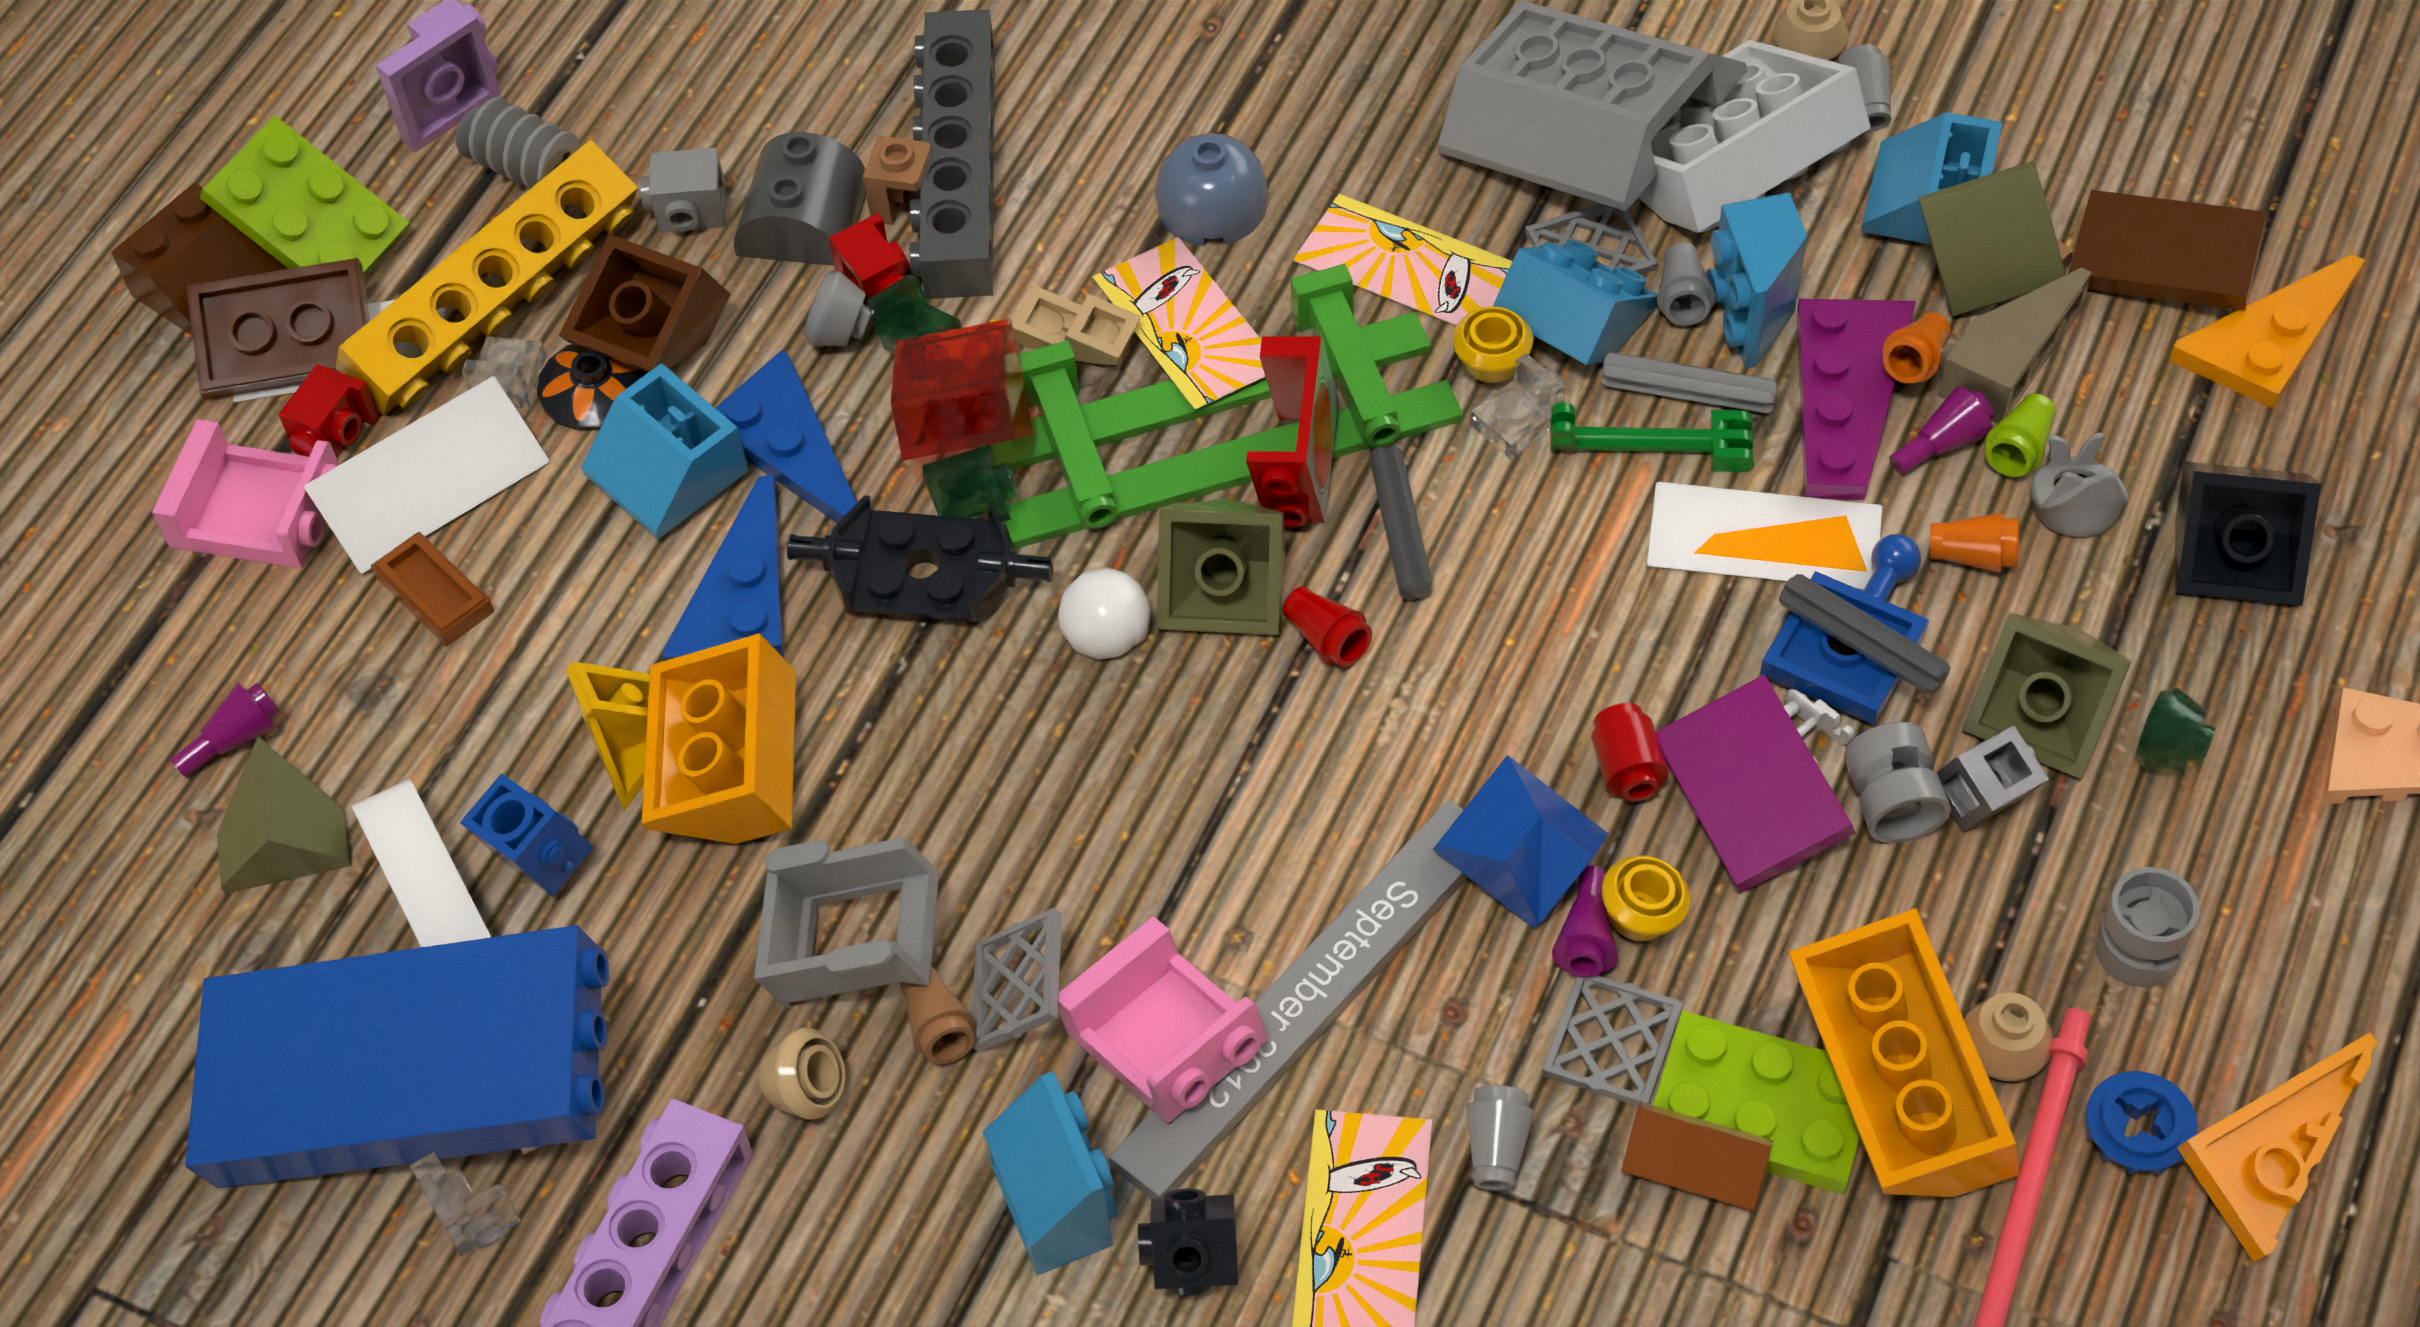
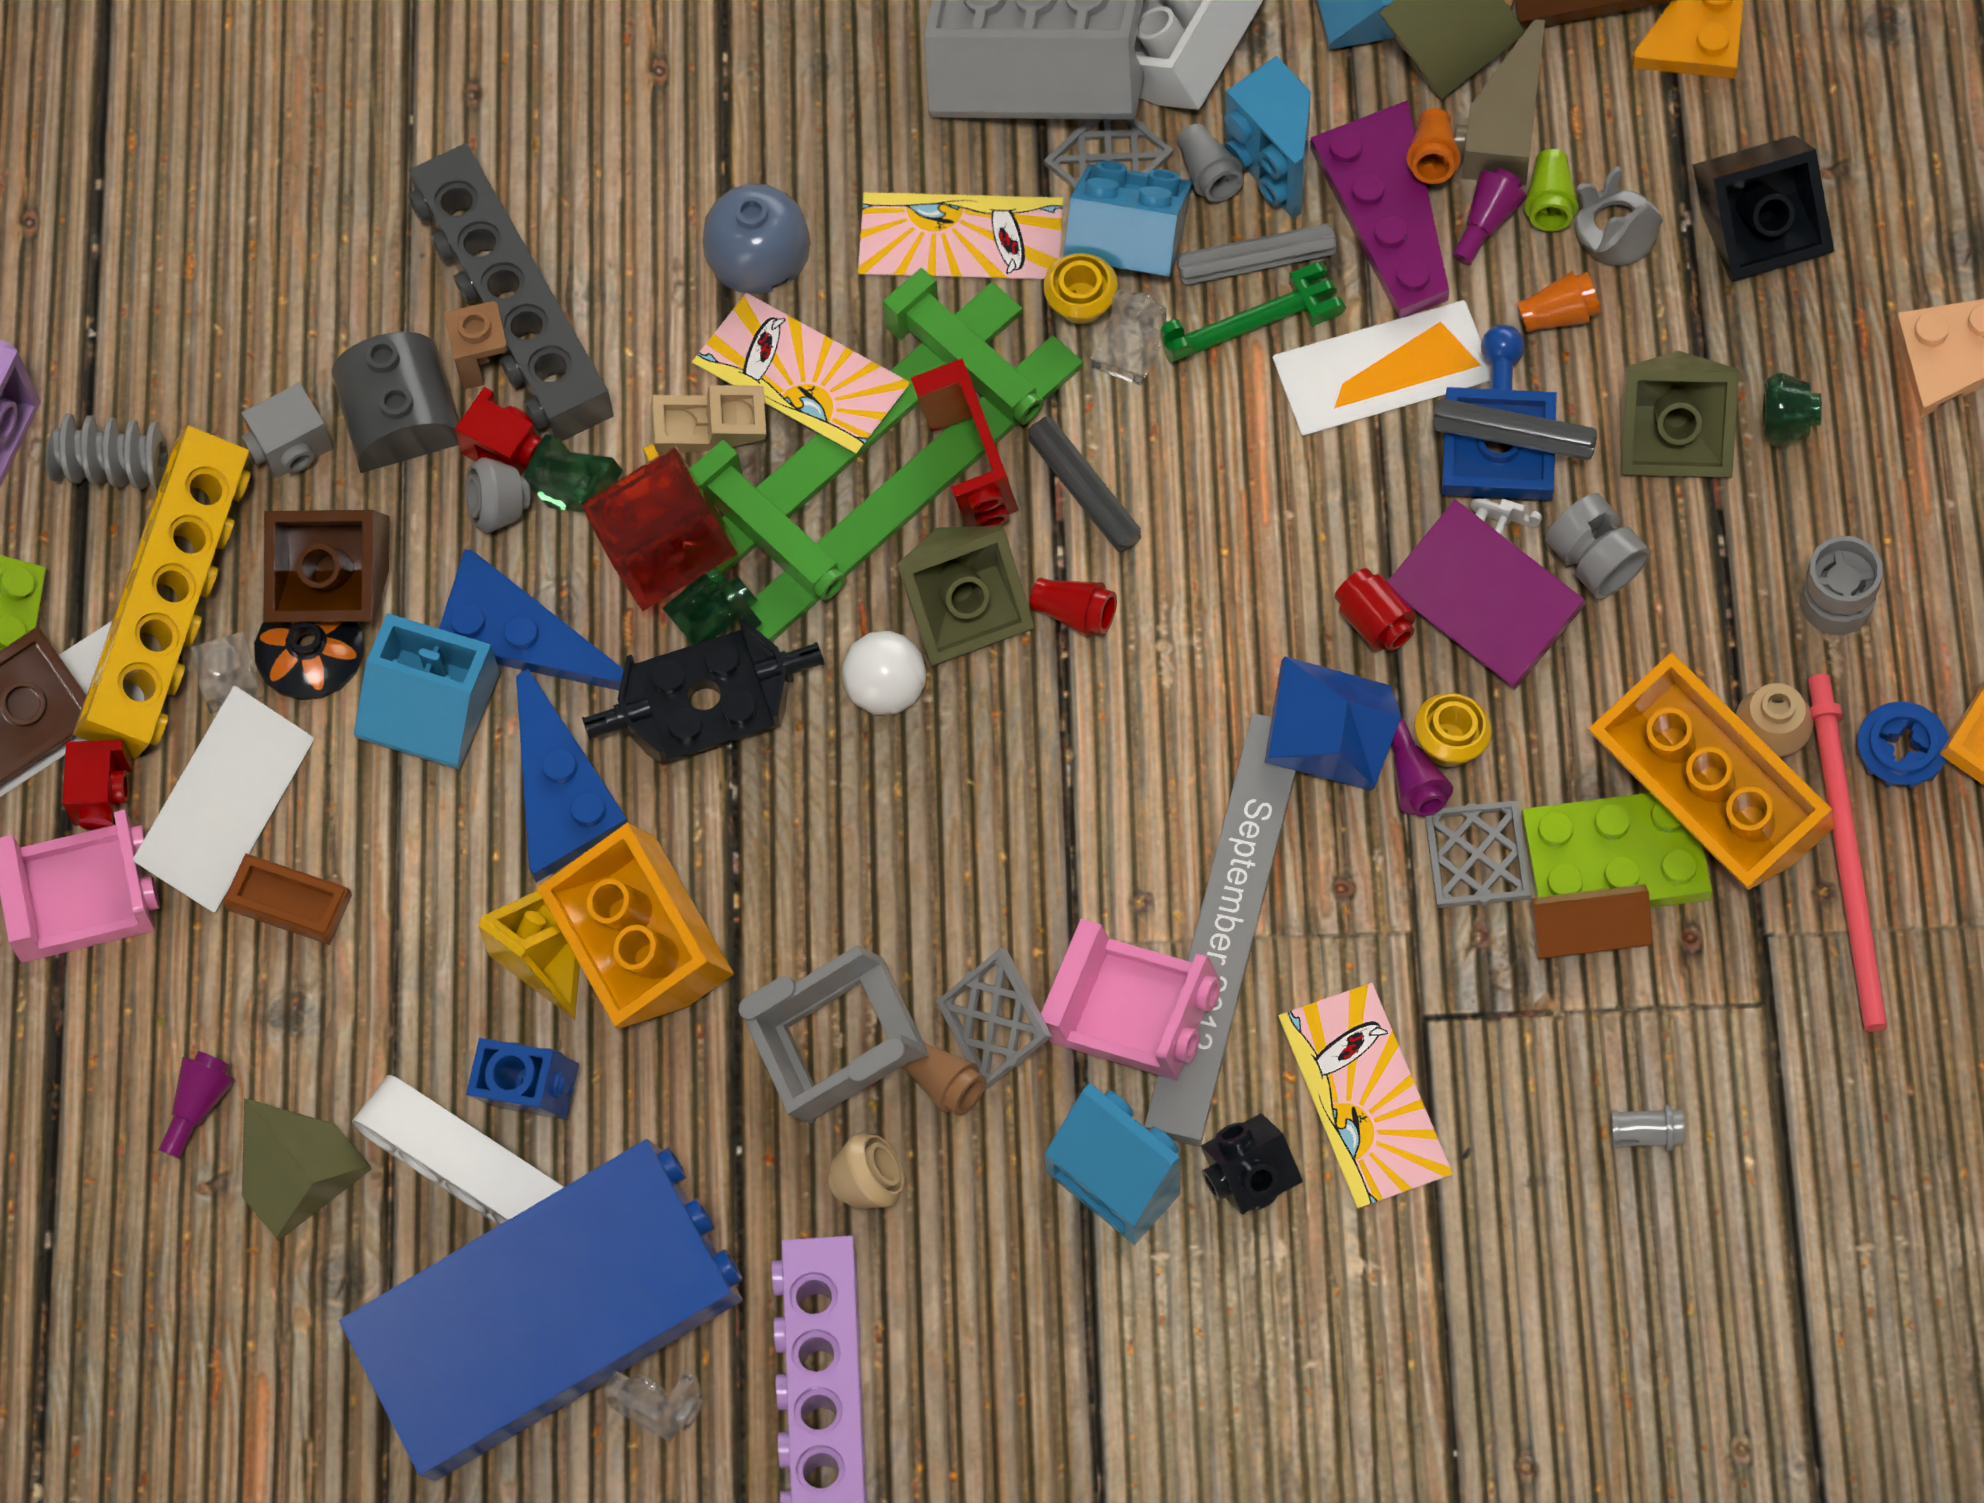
camera: 25 degrees left, 10 degrees up
(1498, 1134) = (1433, 972): light grey cone -> none
(1991, 777) = (1667, 509): flat silver brick -> none

